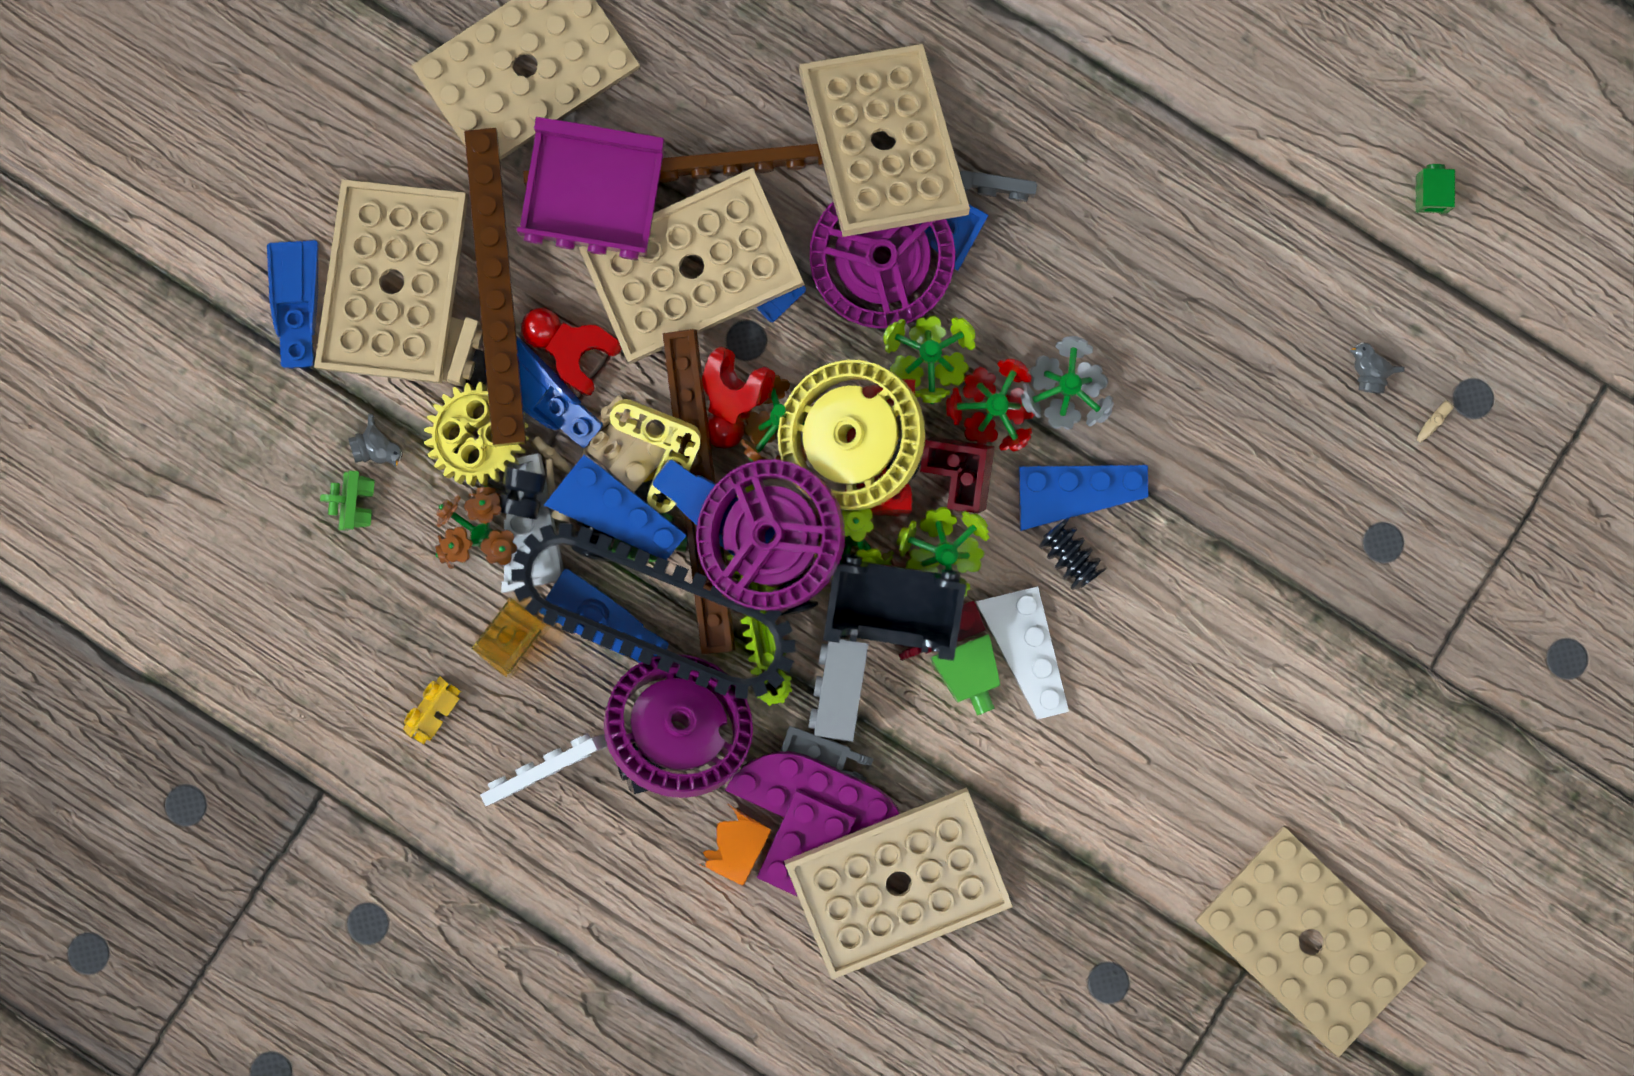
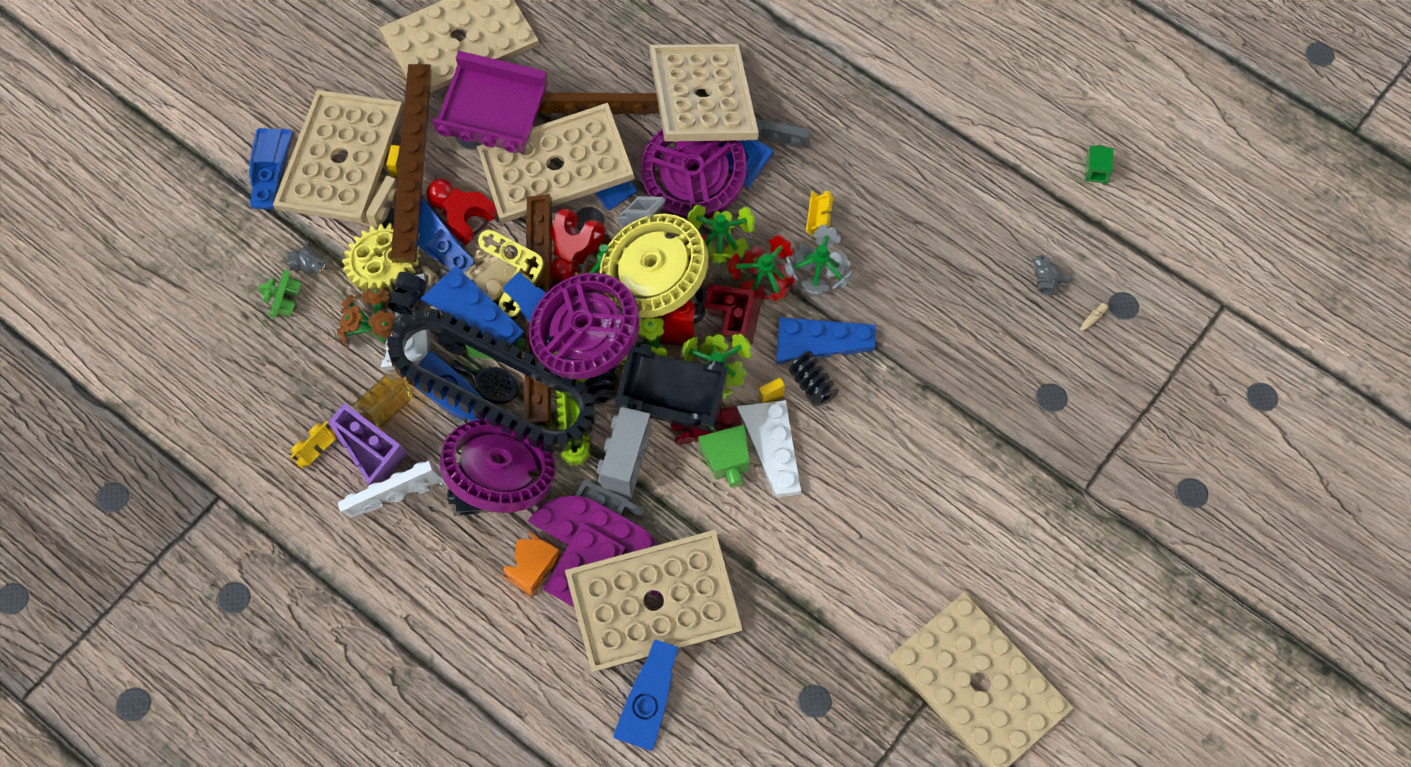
camera: 10 degrees right, 20 degrees down
(469, 282) = (393, 161): none -> yellow tile
(503, 708) = (368, 446): none -> medium lavender wedge
(615, 585) = (466, 371): none -> black piece
(820, 341) = (640, 208): none -> light grey slope
(904, 1004) = (648, 698): none -> blue piece
(1018, 577) = (771, 391): none -> yellow tile
(1058, 320) = (818, 209): none -> yellow hinge

